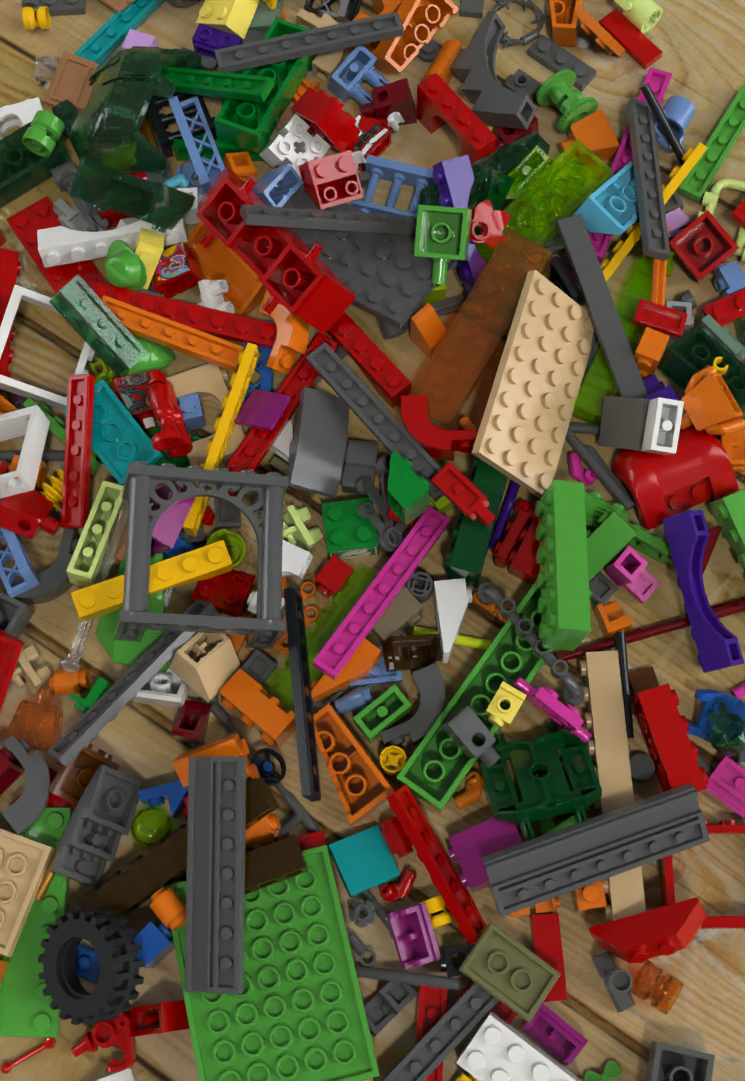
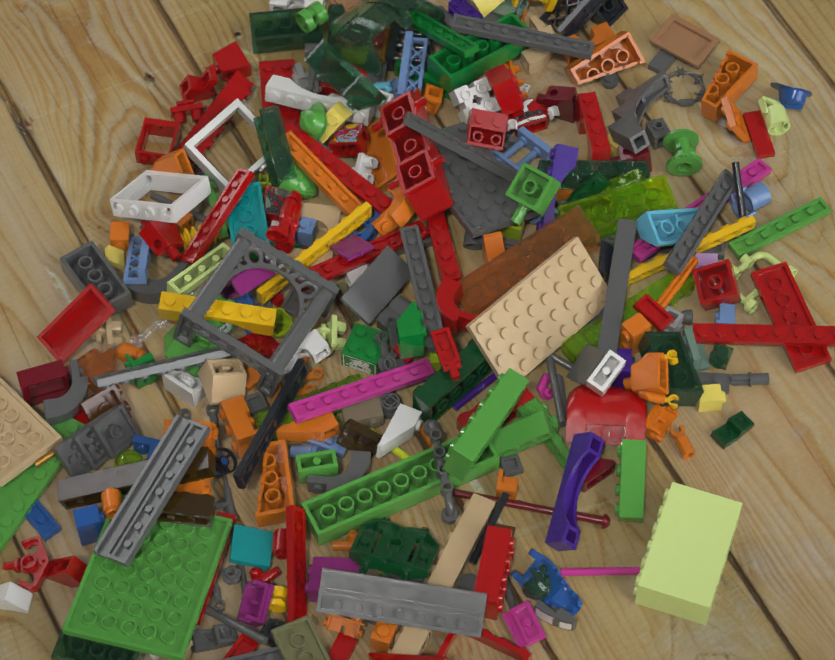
camera: 25 degrees right, 15 degrees down
(117, 960) = (56, 521): black tyre -> none
(192, 722) = (192, 410): dark red slope -> none
(273, 193) = (443, 120): medium blue torso -> none
(333, 577) = (336, 371): red brick -> none
(352, 73) = (545, 71): medium blue brick -> none
(392, 756) = (305, 493): yellow wheel -> none
(444, 60) = (606, 96): orange brick -> none
(461, 729) = (362, 495): dark grey torso -> none
(490, 223) = (570, 197): plate -> none
(510, 695) = (396, 498): light yellow brick -> none
(513, 531) = (468, 403): red hinge -> none
(546, 701) = (432, 518): dark pink plate -> none
(558, 59) = (695, 121): dark grey plate -> none
(595, 134) = (687, 184): orange torso -> none
(629, 571) = (534, 462): dark pink brick -> none

